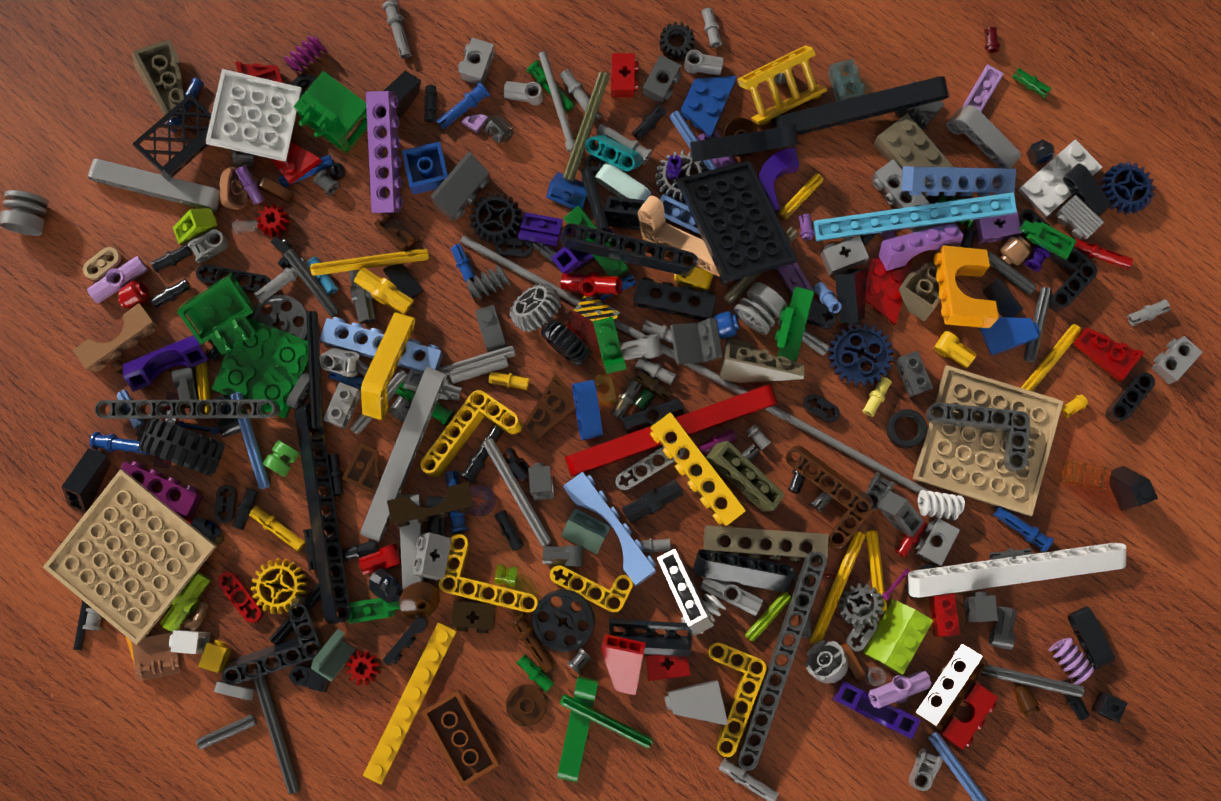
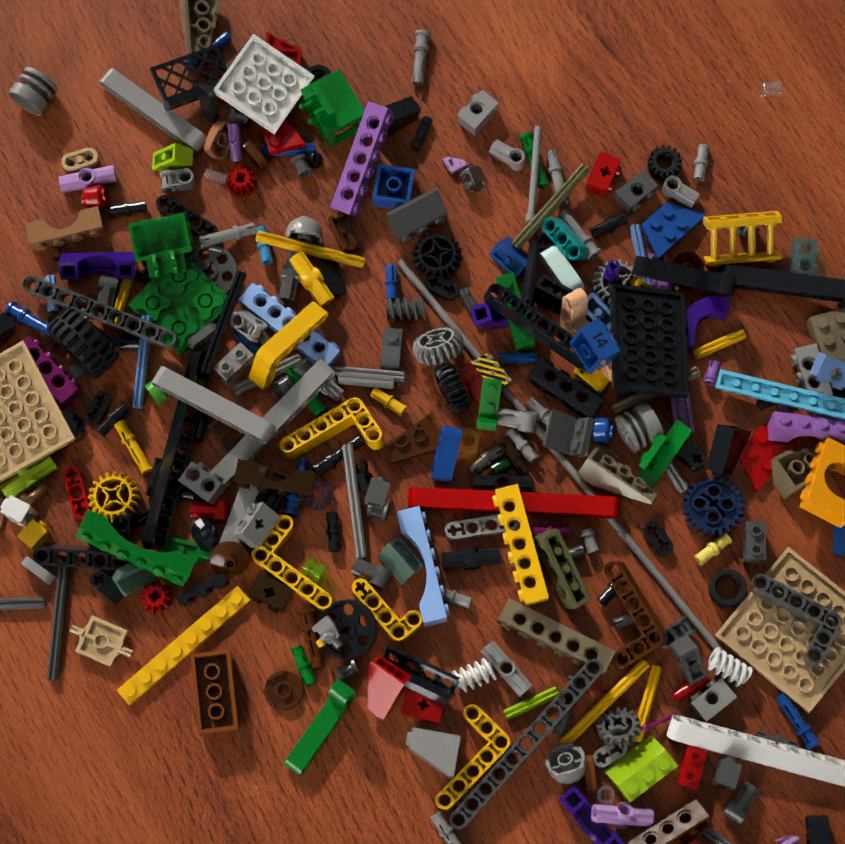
camera: 25 degrees right, 5 degrees down
(171, 258) = (140, 179): black pin -> none
(188, 476) = (76, 371): none -> clear light blue hinge
(206, 155) = (208, 102): none -> black slope
(278, 631) = (170, 565): none -> green arch
(282, 246) = (241, 207): black bracket -> none
(305, 54) = (329, 48): magenta piece -> none
(311, 282) = (252, 247): dark grey axle -> none
(327, 733) = (101, 641): none -> tan plate
(339, 456) = (213, 405): none -> light grey beam
(356, 245) = (305, 230): none -> light grey cylinder
(361, 542) = (201, 485): none -> dark grey brick
(470, 100) = (457, 143): blue pin -> none
(540, 229) = (471, 280): dark purple plate -> none
(546, 632) = (328, 632): none -> light grey piece
(591, 284) = (496, 345): red piece -> none
(606, 721) = (348, 732): green axle -> none
(685, 592) = (465, 647): light grey brick -> none
(689, 247) = (594, 346): none -> blue brick
(702, 167) = (636, 281): none -> yellow hand
(743, 570) = (526, 652): black beam -> none
(827, 297) = (704, 442): medium blue pin -> none
(837, 263) = (727, 416): light grey brick -> none
(949, 346) = (799, 532): yellow piece -> none

